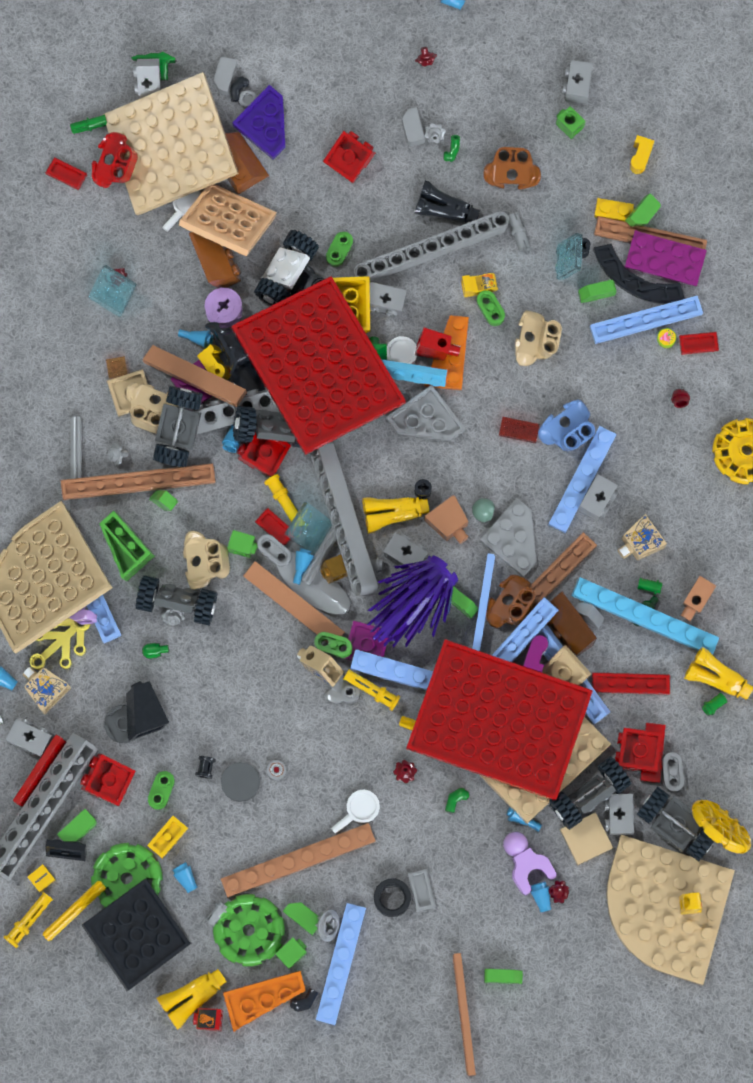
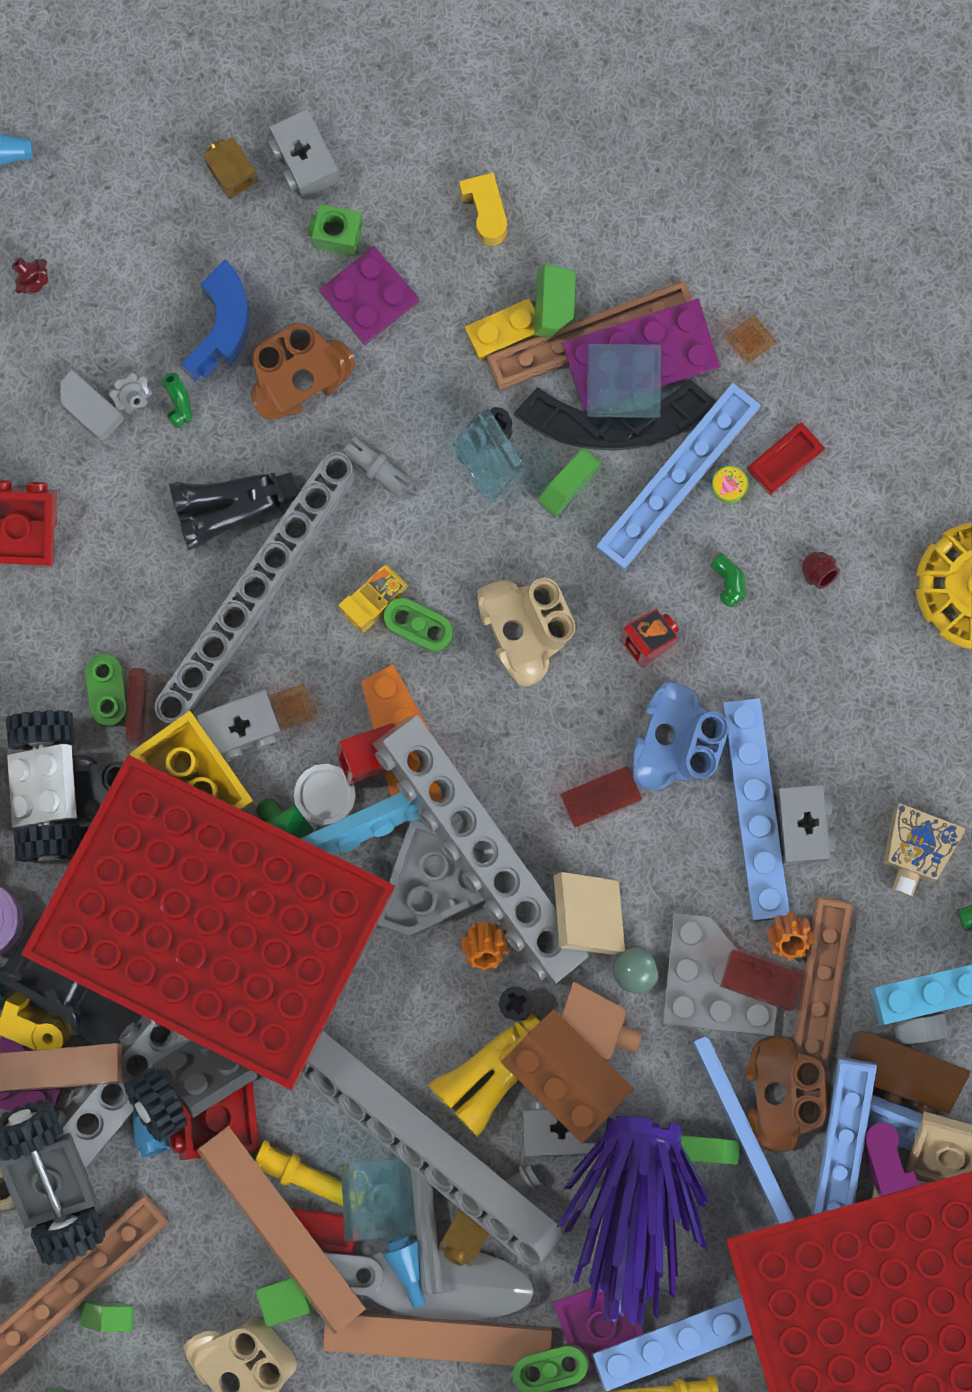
camera: 30 degrees left, 5 degrees up
(260, 512) = (281, 1230): none -> nougat tile
(348, 262) = (136, 706): none -> clear red tile
(413, 307) = (292, 707): none -> clear orange tile
(423, 528) = (567, 1076): none -> dark orange slope
(426, 456) = (484, 945): none -> orange gear
(455, 345) = (478, 827): none -> light grey brick
(480, 471) = (589, 913): none -> tan tile
(496, 133) = (230, 327): none -> blue arch
(534, 548) = (761, 980): none -> clear red plate
(543, 67) = (230, 167): none -> pearl gold brick
(557, 544) = (790, 936): none -> orange gear
(565, 159) = (369, 295): none -> magenta plate
(586, 376) = (649, 637): none -> slope
(640, 377) = (733, 580): none -> green arm
(650, 263) = (624, 380): none -> clear light blue plate
(718, 283) = (750, 339): none -> clear orange tile

